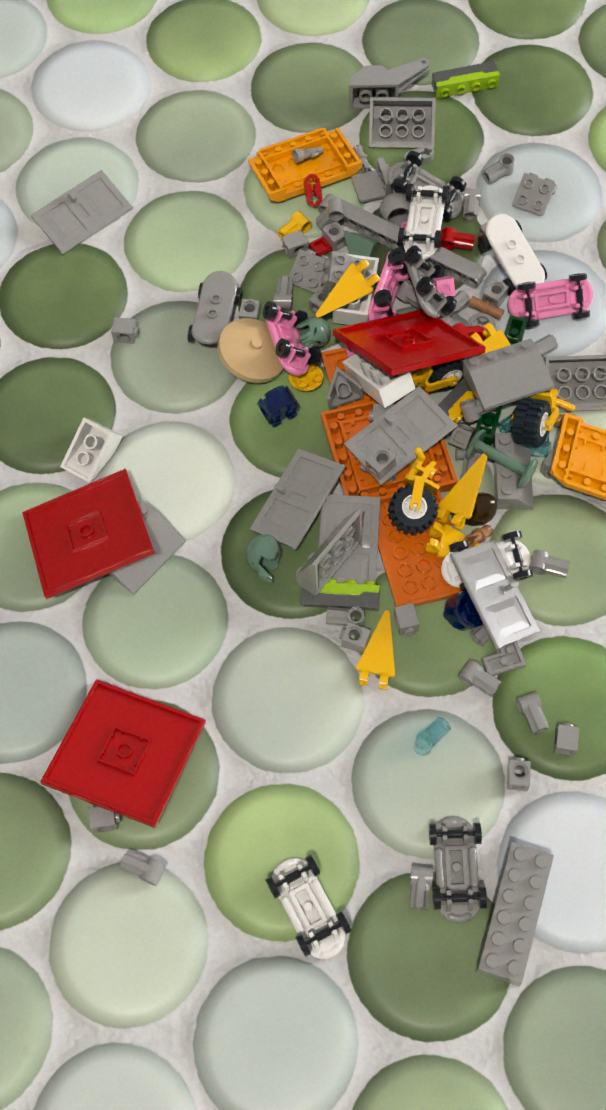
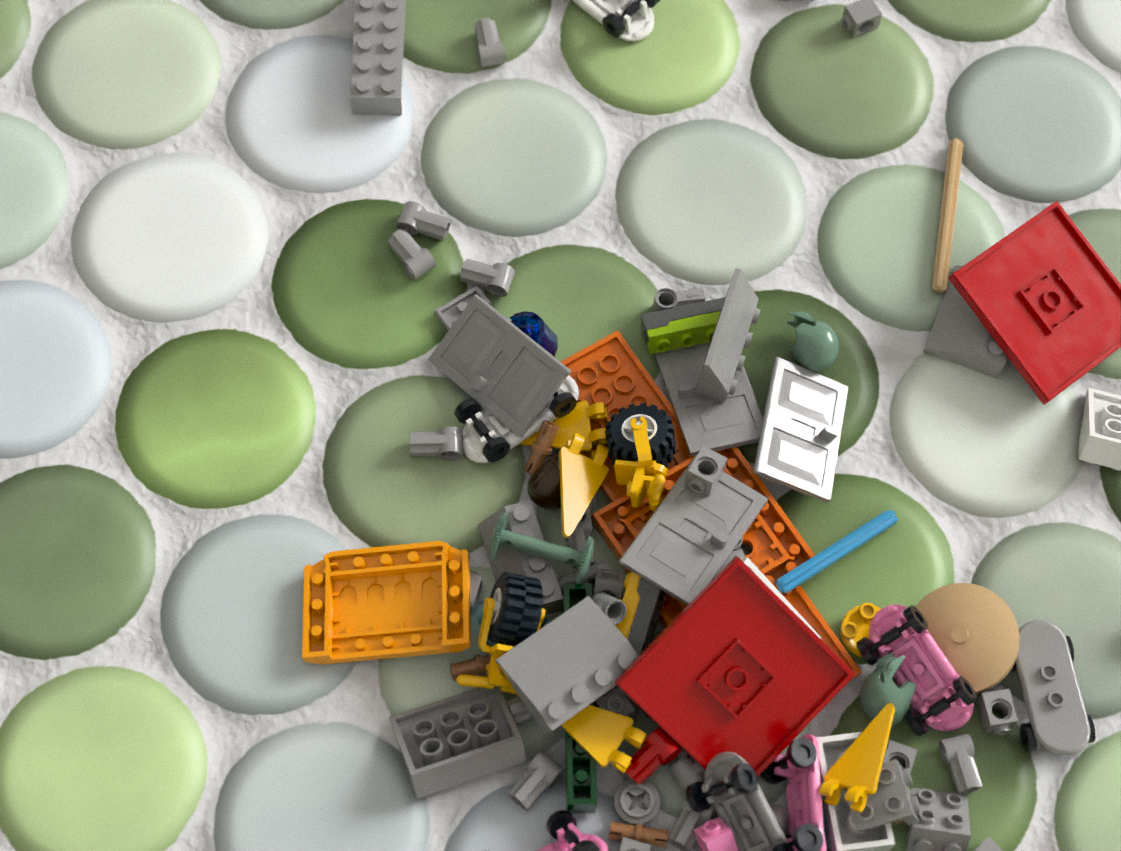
camera: 155 degrees right, 0 degrees up
(118, 633) = (947, 216): none -> tan axle
(124, 753) = (872, 83): red tile -> none
(278, 405) = (885, 559): clear blue brick -> none
(307, 415) = (836, 551): none -> dark azure axle
(343, 390) = (808, 598): light grey slope -> none
(356, 645) = (653, 272): light grey brick -> none
(378, 654) = (621, 274): yellow flag -> none
(406, 619) = (600, 319): light grey brick -> none
(431, 735) = (525, 195): clear light blue piece -> none
(456, 869) = (456, 73): light grey piece -> none
(515, 782) = (411, 172): light grey brick -> none
(521, 740) = (418, 220): none -> light grey piece
(566, 739) = (363, 233): light grey brick -> none

